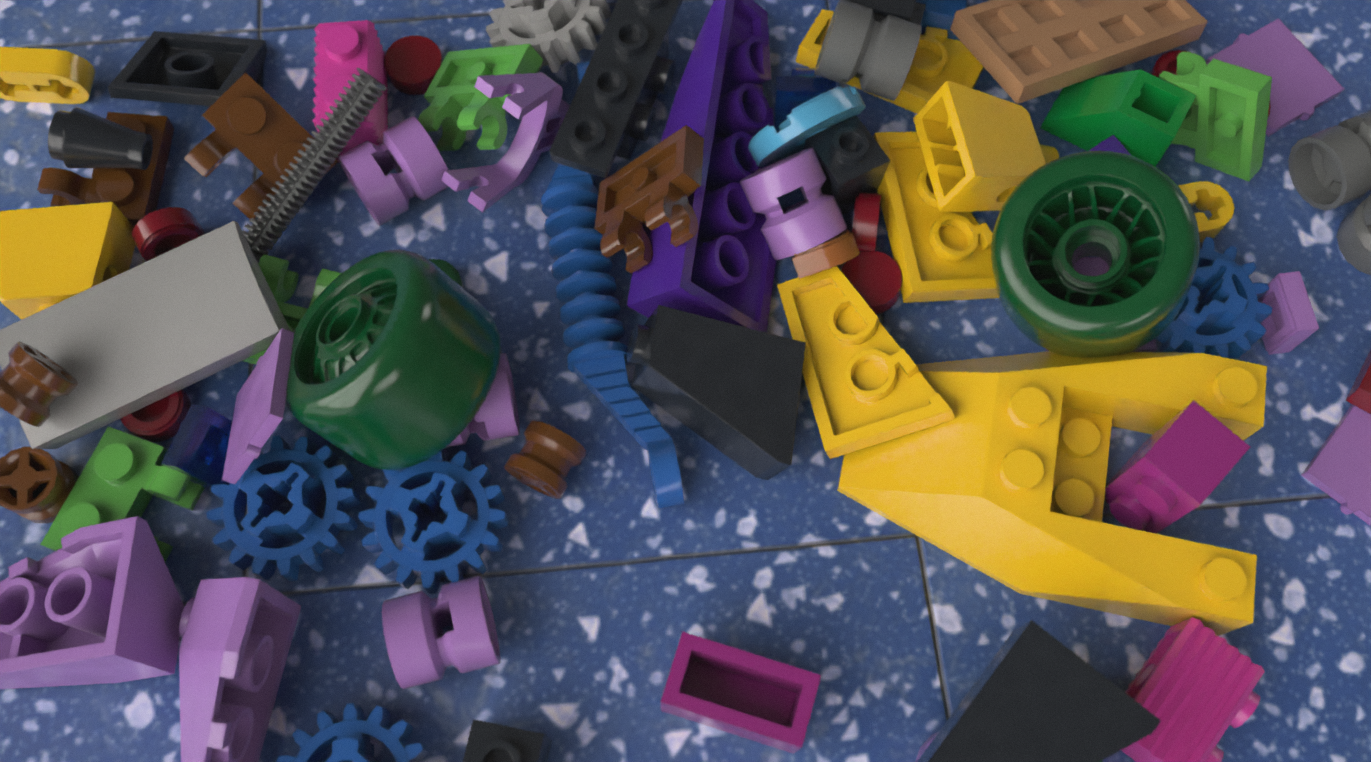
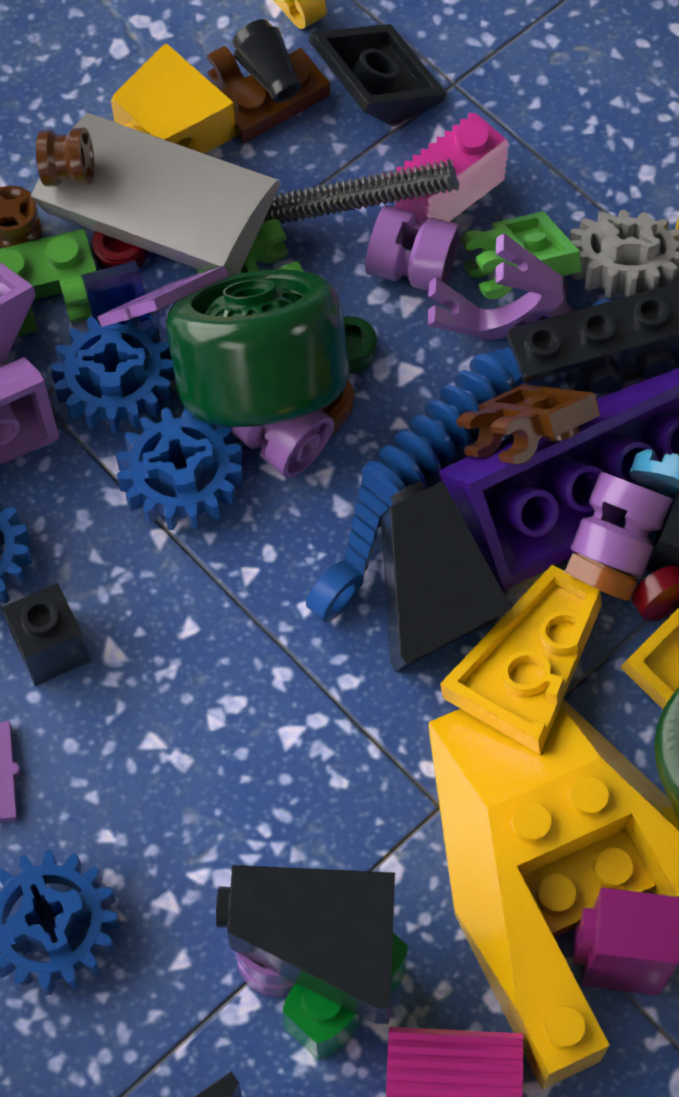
camera: 55 degrees right, 5 degrees down
(164, 231) = (245, 150): dark red tile -> none
(260, 130) = (363, 141): reddish brown plate -> none
(412, 63) = (514, 196): dark red tile -> none
(417, 640) = (98, 524): medium lavender wheel -> none
(545, 459) = (280, 506): reddish brown wheel -> none
(740, 693) = (209, 745): magenta piece -> none
(875, 278) = (617, 632): dark red tile -> none

